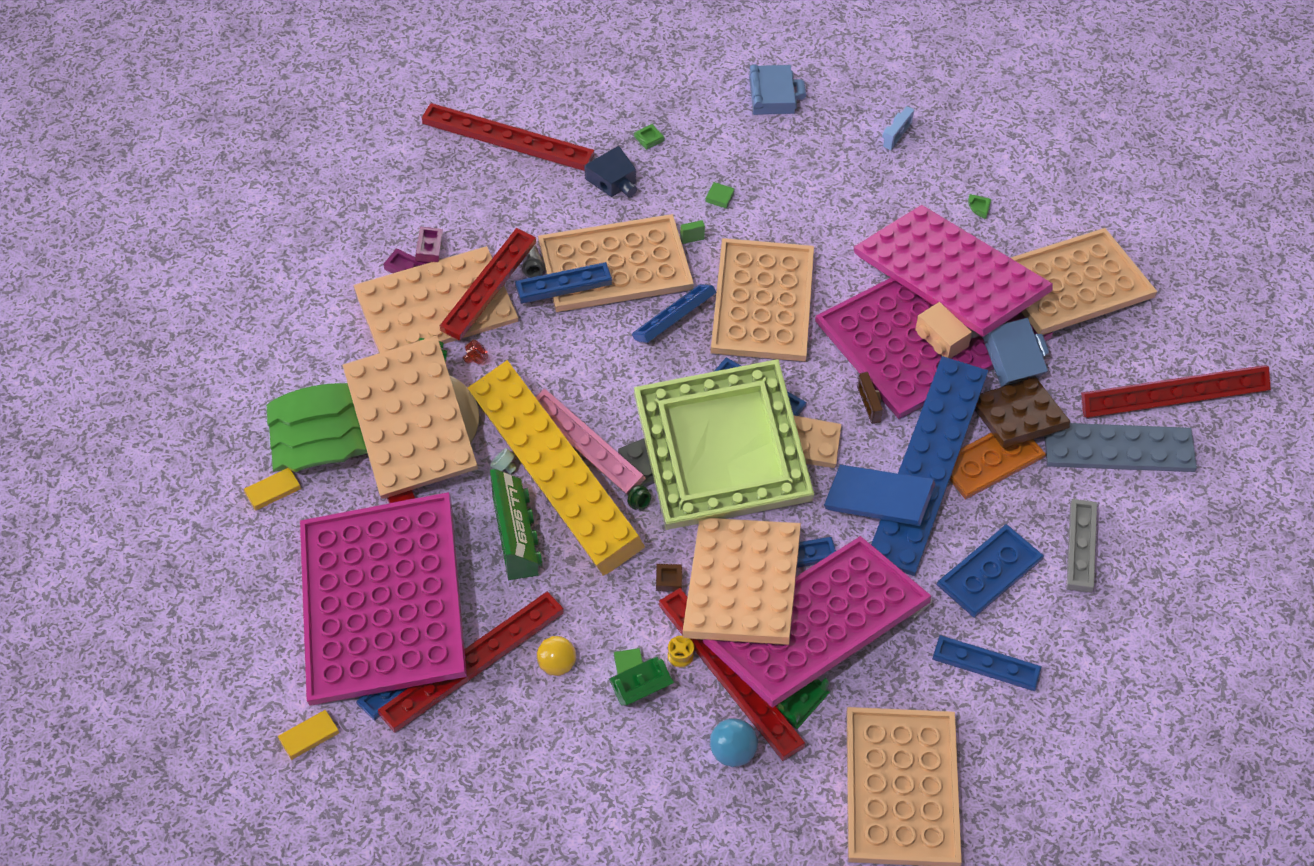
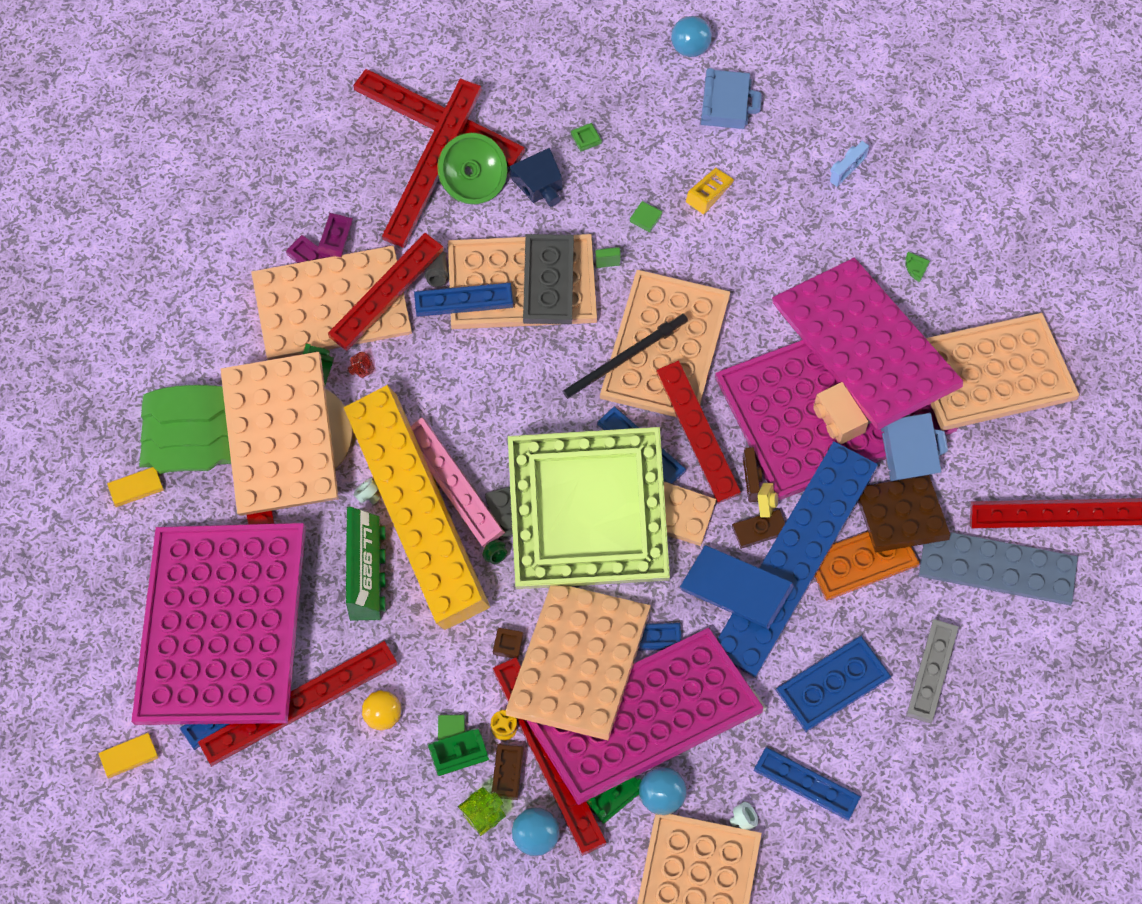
camera: 10 degrees right, 10 degrees up
(509, 173) = (426, 172): none -> red plate
(559, 166) = (486, 164): none -> bright green dish
(641, 254) = (548, 279): none -> dark grey plate
(673, 313) = (570, 348): blue tile -> none
(676, 731) = (482, 810): none -> clear neon green brick
(693, 694) = (507, 771): none -> reddish brown plate
(729, 41) = (691, 36): none -> dark azure piece
(759, 285) = (663, 331): none -> black bar
(771, 176) = (703, 202): none -> yellow slope
(811, 367) = (698, 432): none -> red plate
(850, 686) = (662, 791): none -> dark azure piece
(887, 445) = (758, 529): none -> reddish brown plate
(891, 416) = (767, 500): none -> light yellow plate
(934, 700) = (744, 816): none -> light aqua tile

